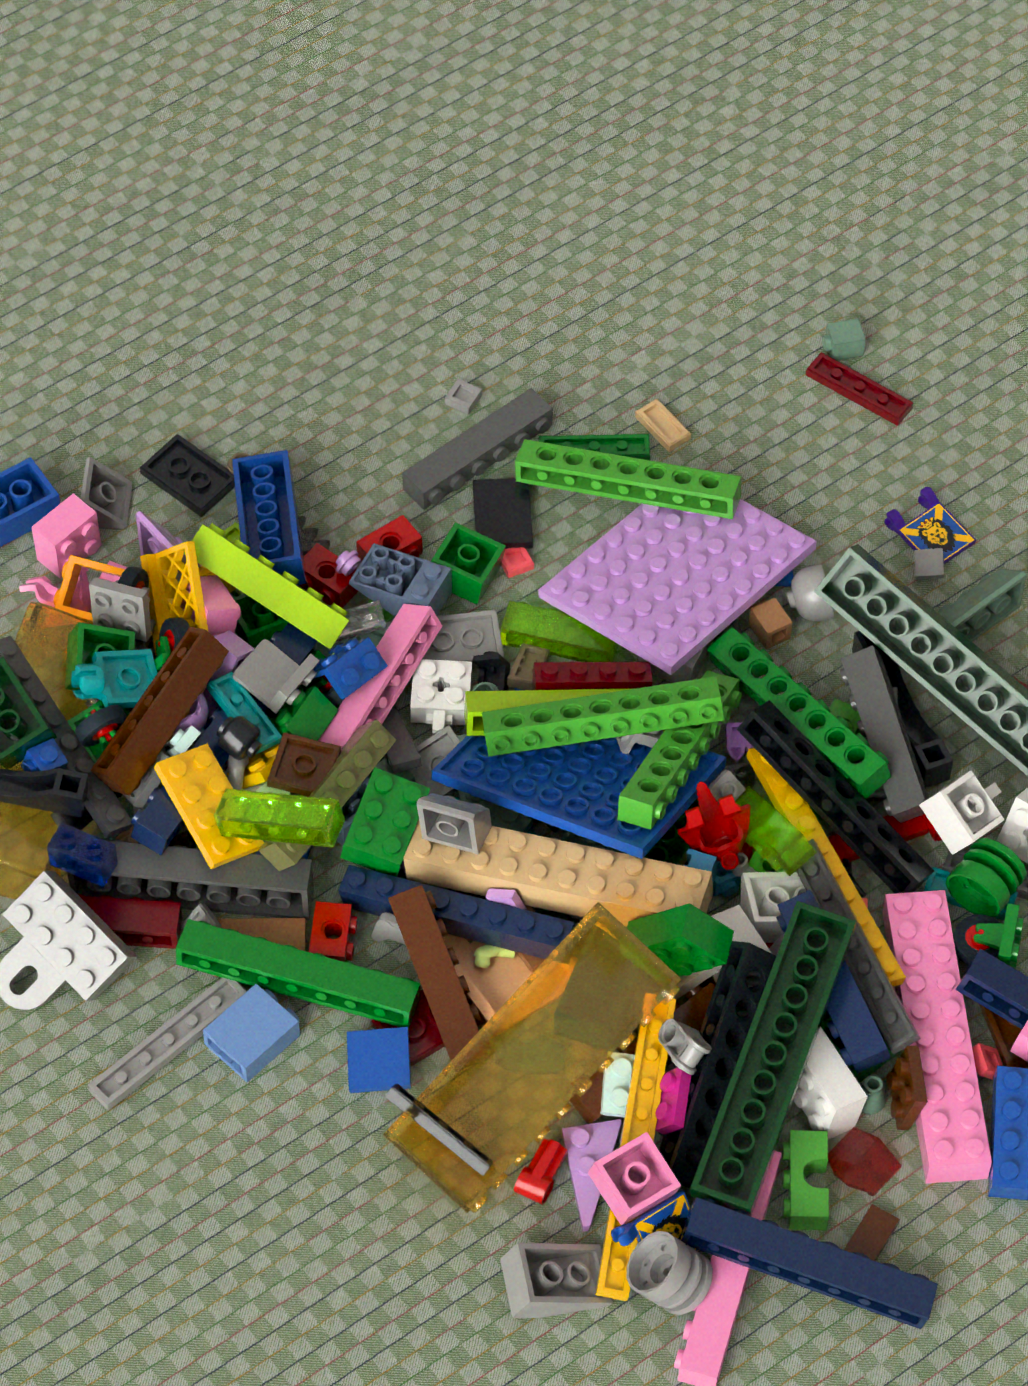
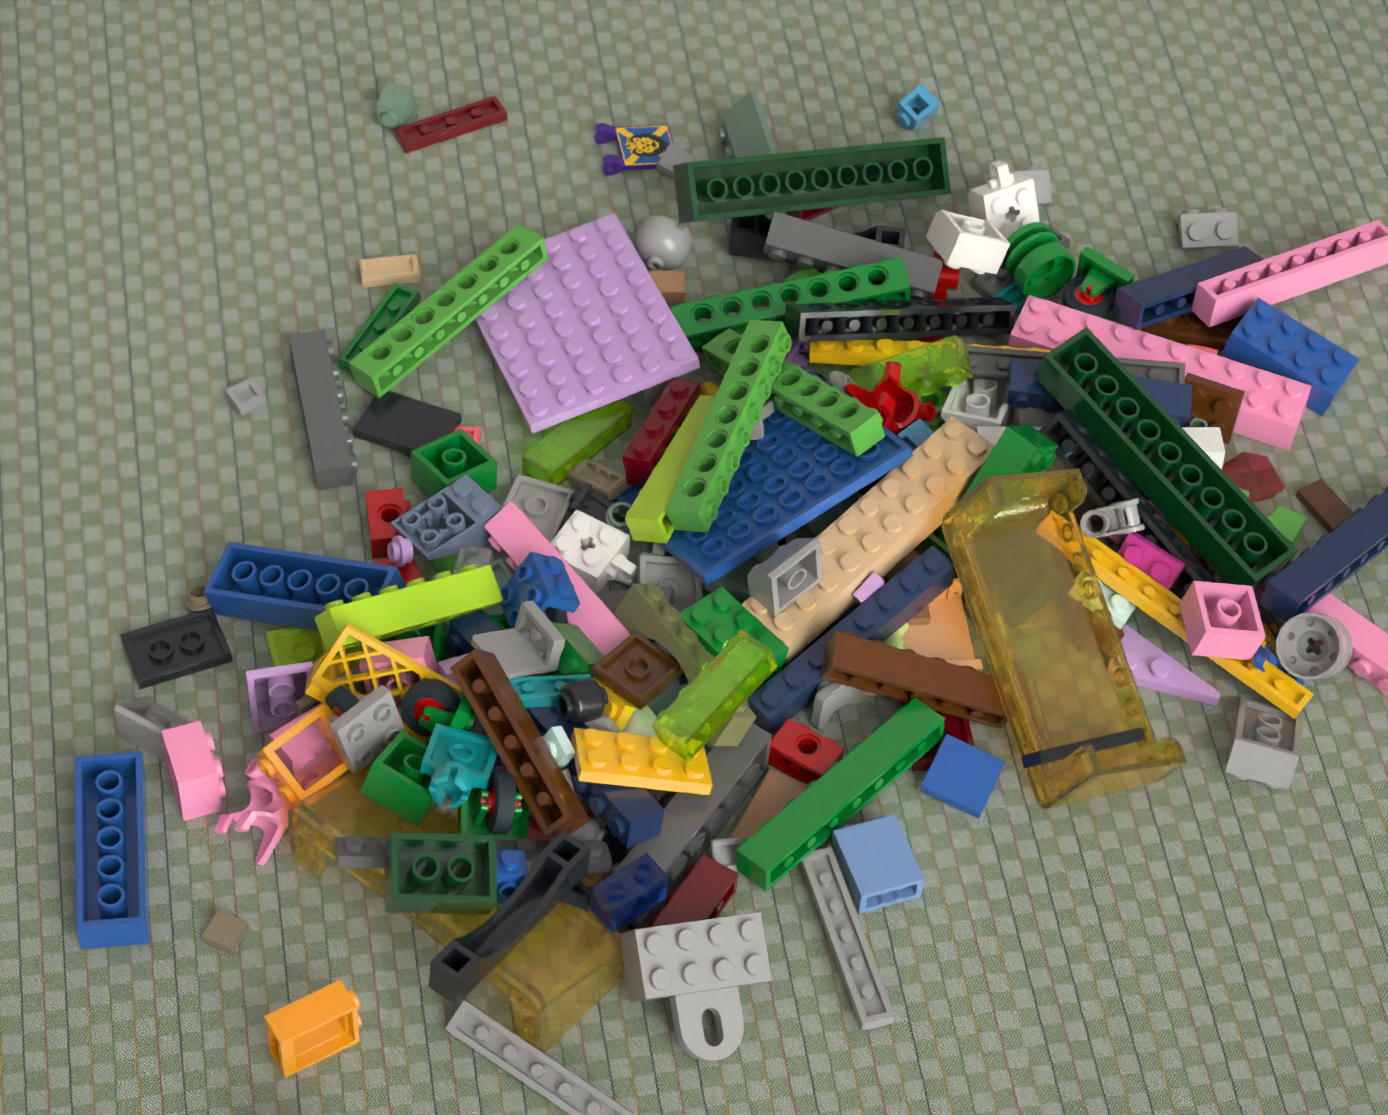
camera: 65 degrees left, 5 degrees down
(538, 1178) = (1160, 710): red piece -> none

